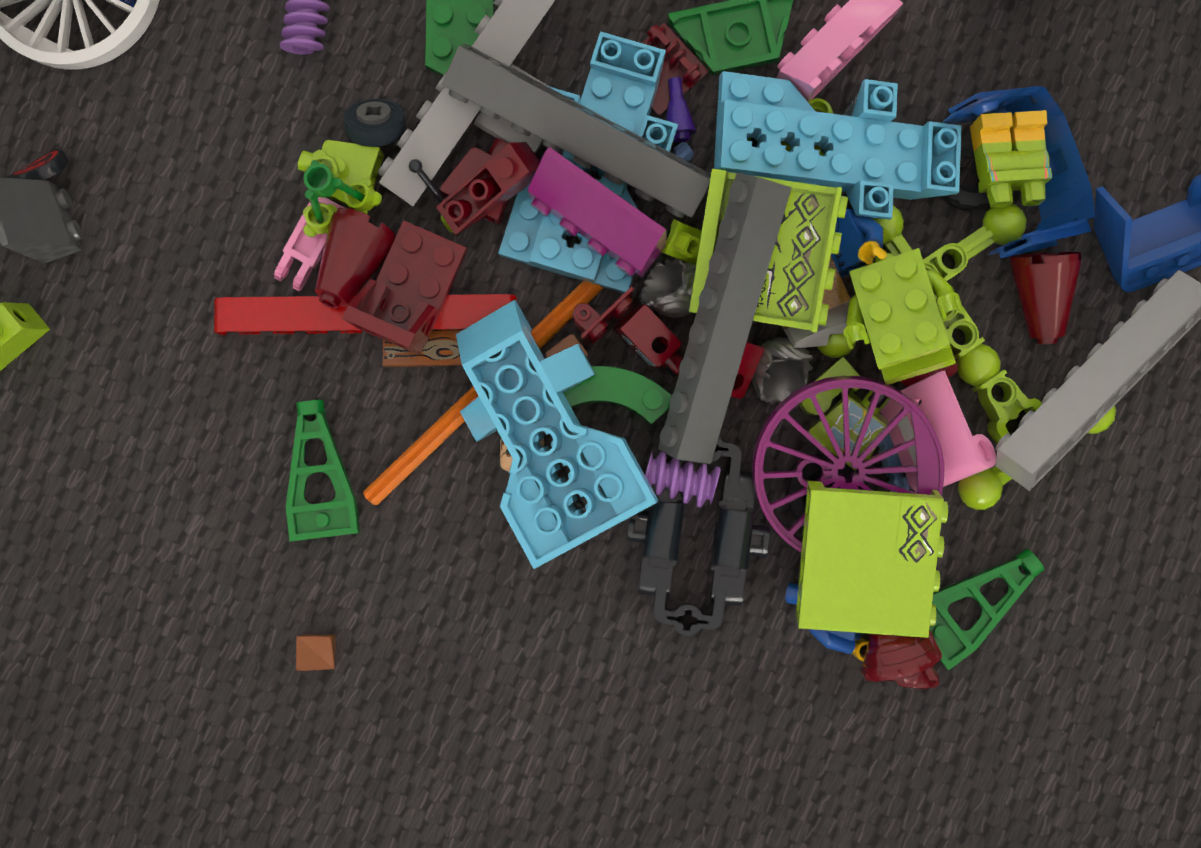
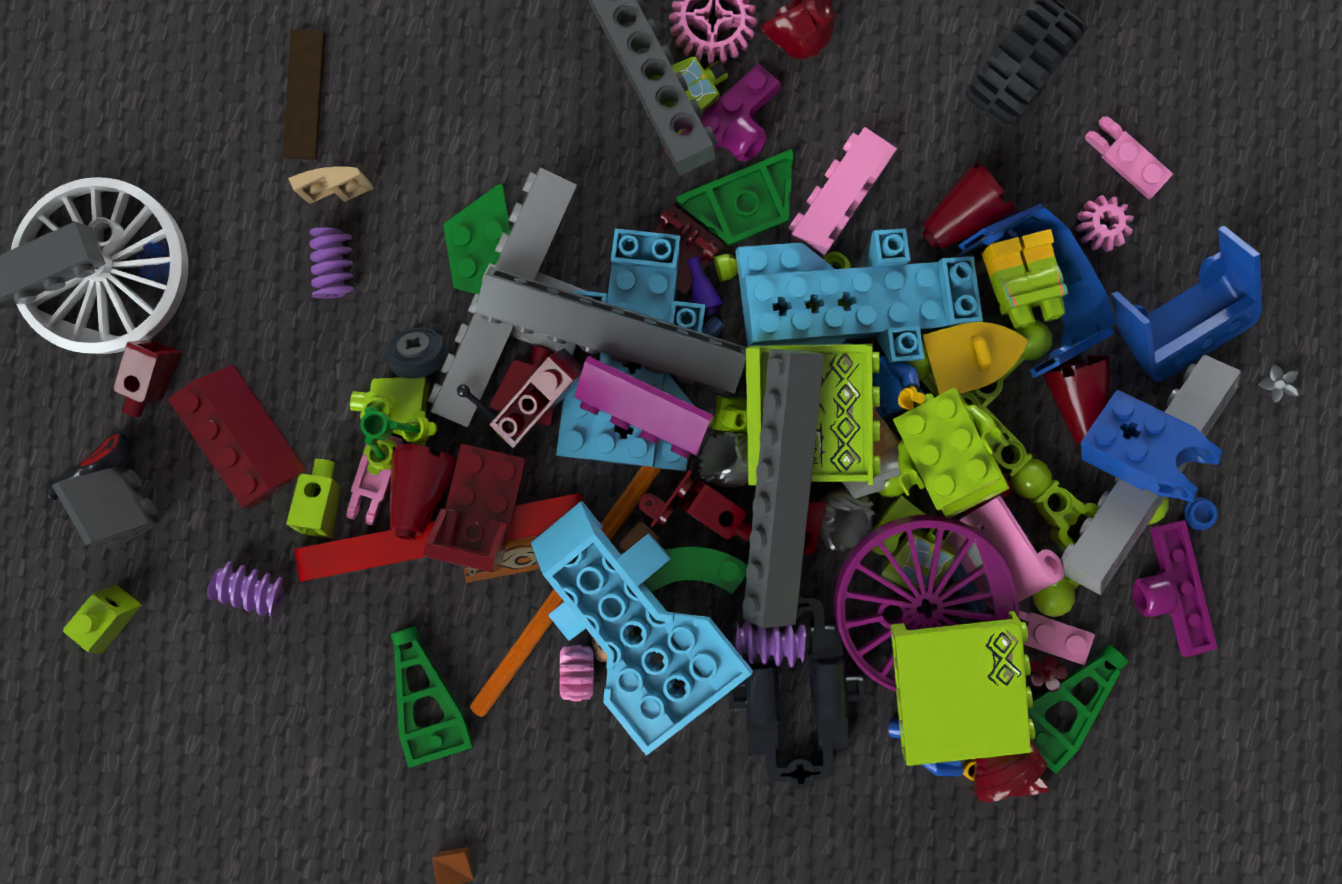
camera: 10 degrees left, 0 degrees up
(95, 93) = (145, 374): none -> dark red torso
(157, 331) = (246, 590): none -> medium lavender piece
(177, 174) = (237, 436): none -> dark red slope
(243, 265) = (315, 514): none -> lime torso
(477, 475) = (576, 672): none -> bright pink gear
(706, 94) = (726, 266): none -> lime hinge
(942, 224) = (972, 355): none -> yellow shield
(958, 566) = (1047, 673): none -> dark red plant
(968, 71) = (967, 209): none -> dark red cone
(976, 533) = (1057, 637): none -> bright pink hinge
(1094, 128) = (1100, 233): none -> bright pink gear
(1105, 347) = (1146, 447): none -> blue brick
(1107, 505) = (1176, 590): none -> magenta plate
(1138, 59) = (1129, 158): none -> bright pink hinge
(1144, 433) = (1200, 513): none -> blue plate

